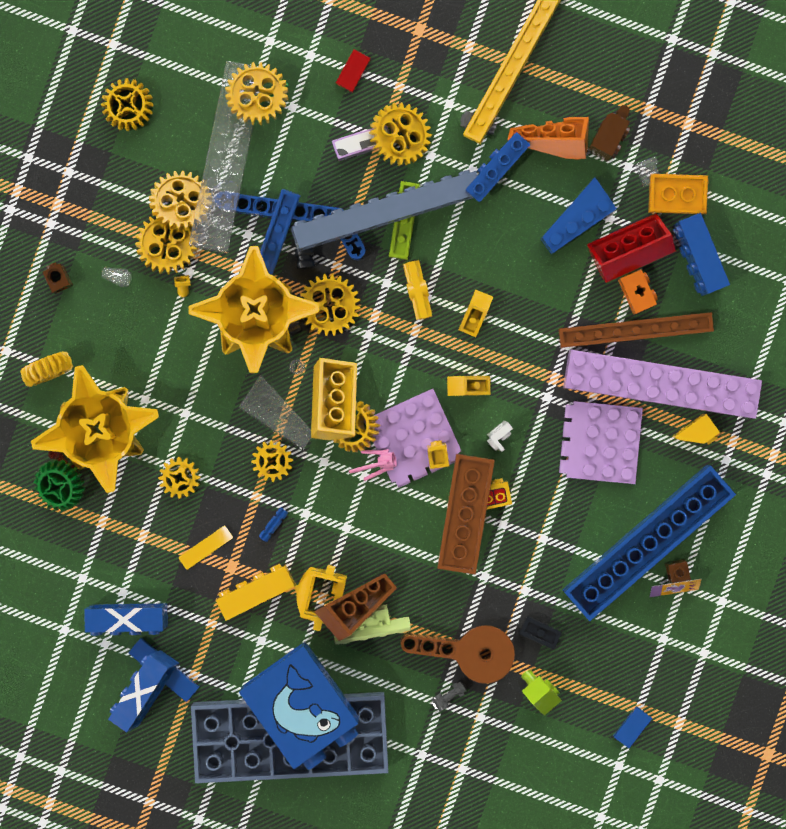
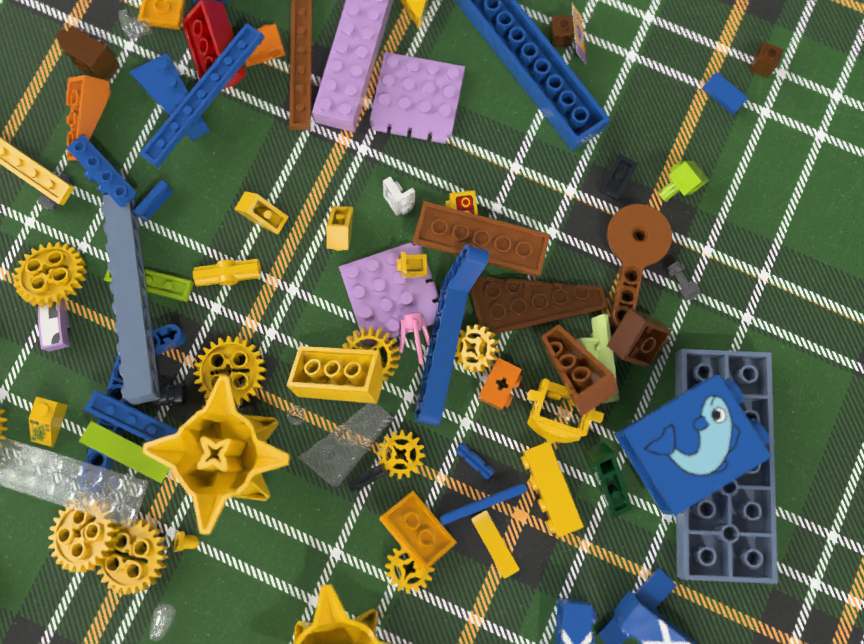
camera: 85 degrees left, 10 degrees down
(209, 482) = (418, 531): none -> light orange tile
(237, 534) = (483, 503): none -> blue tile
(249, 434) = (367, 478): none -> black axle
(251, 225) = (123, 451): none -> lime tile
(268, 640) = (609, 478): none -> dark green slope
(271, 152) = (46, 420): none -> yellow slope
(335, 532) = (501, 371): none -> orange brick
(369, 518) = (482, 345): none -> yellow gear
(379, 489) = (446, 333): none -> blue beam
(389, 658) = (639, 338): none -> reddish brown hinge
(414, 553) = (520, 304): none -> reddish brown wing
(476, 214) = (153, 201): none -> blue tile
(576, 249) = (202, 95): none -> blue tile
(666, 763) = (766, 60): none -> reddish brown brick

